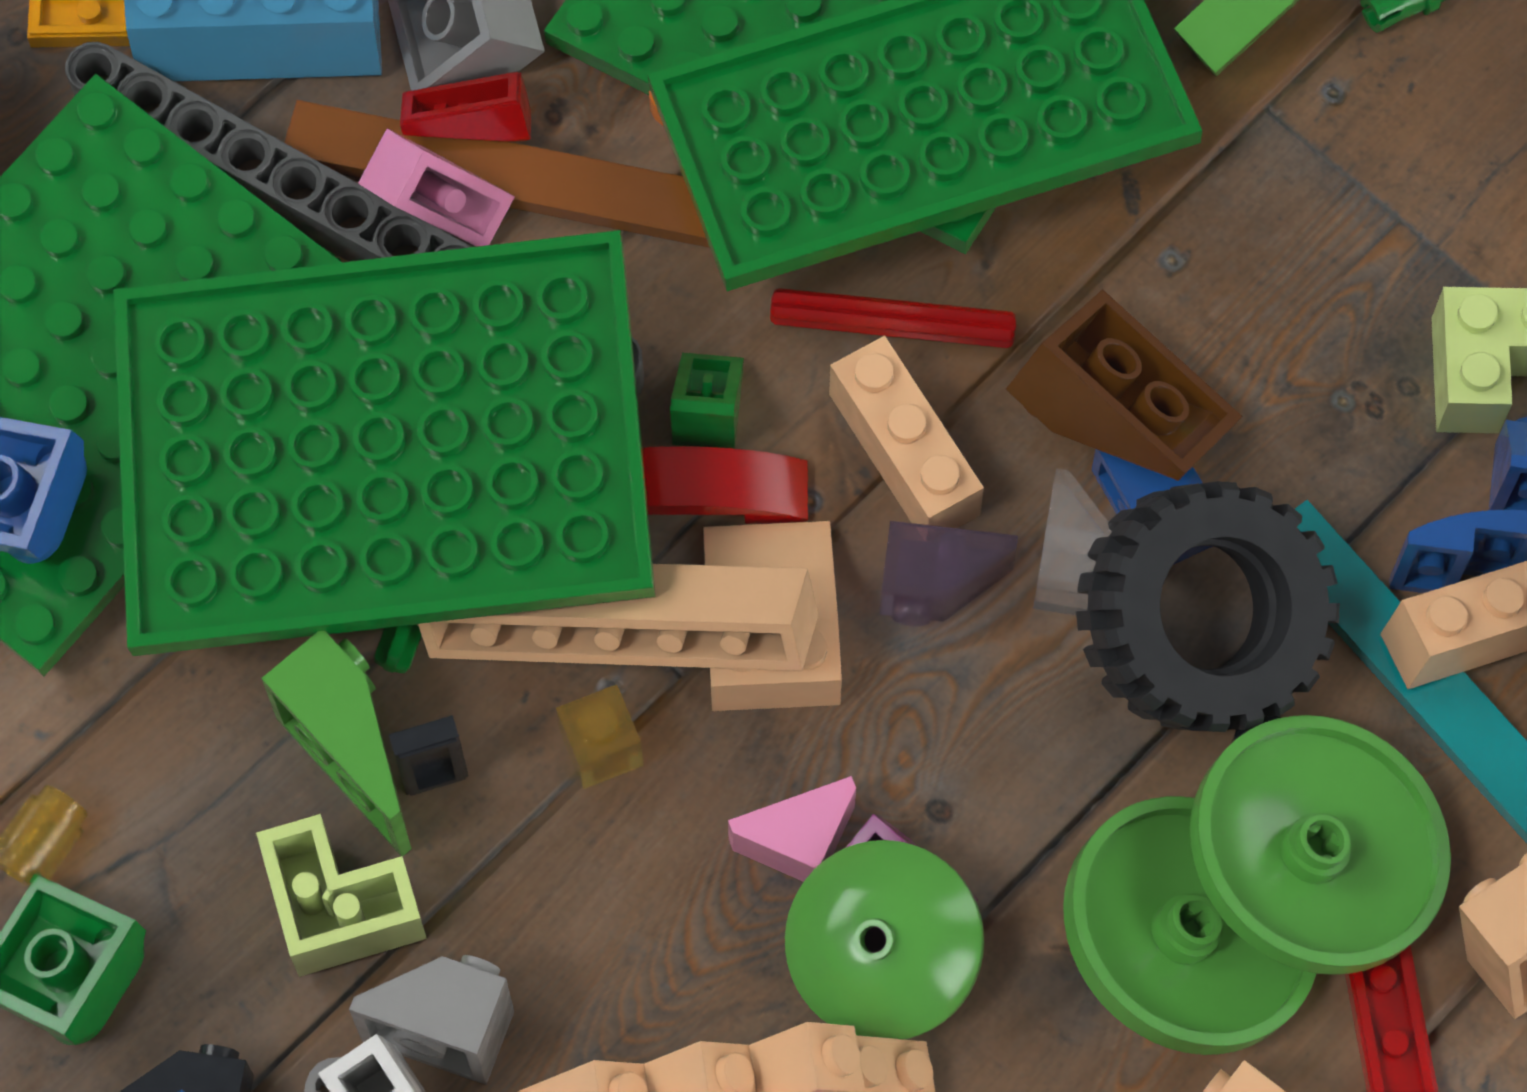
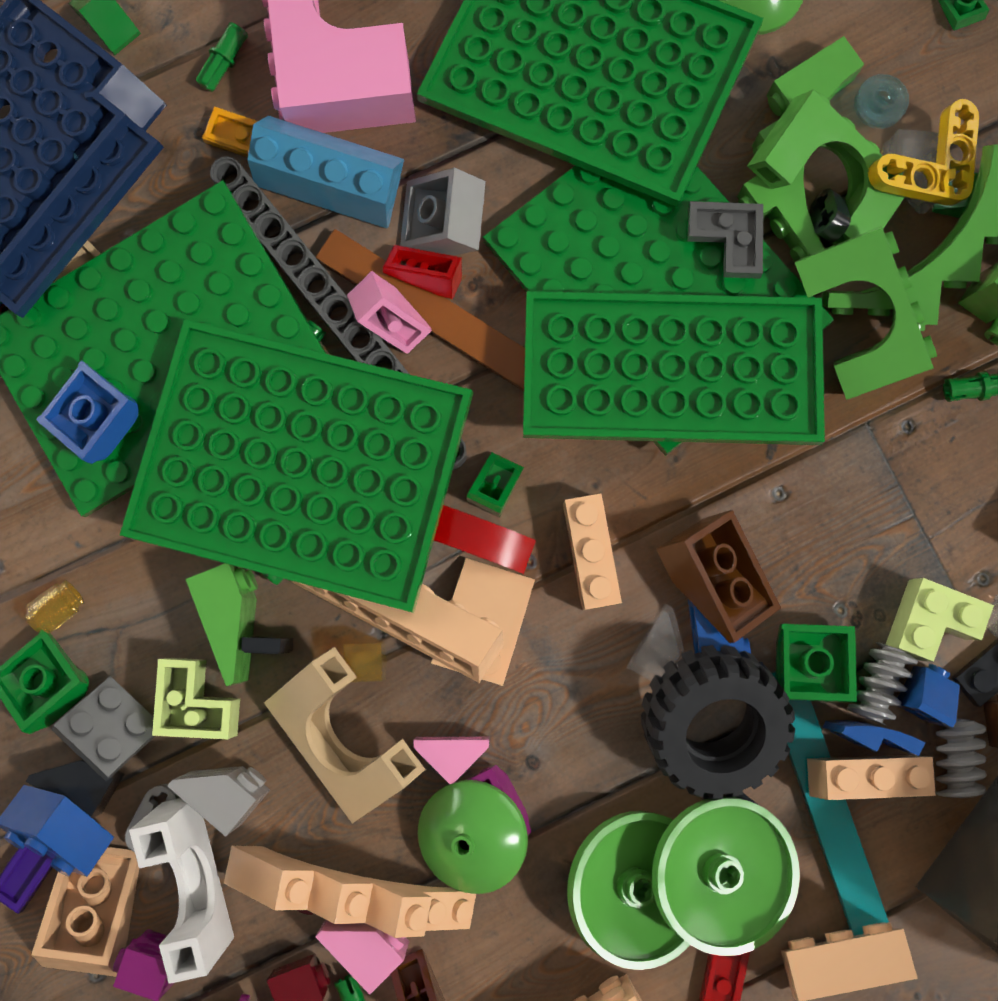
camera: 20 degrees right, 15 degrees up
(204, 991) = (106, 728): none -> dark grey plate
(525, 846) = (352, 780): none -> tan arch
(893, 318) = (613, 475): red axle -> none
(940, 570) = (580, 633): clear purple slope -> none
(1335, 473) = (817, 662): none -> green slope
(1448, 464) = (882, 683): none -> light grey piece

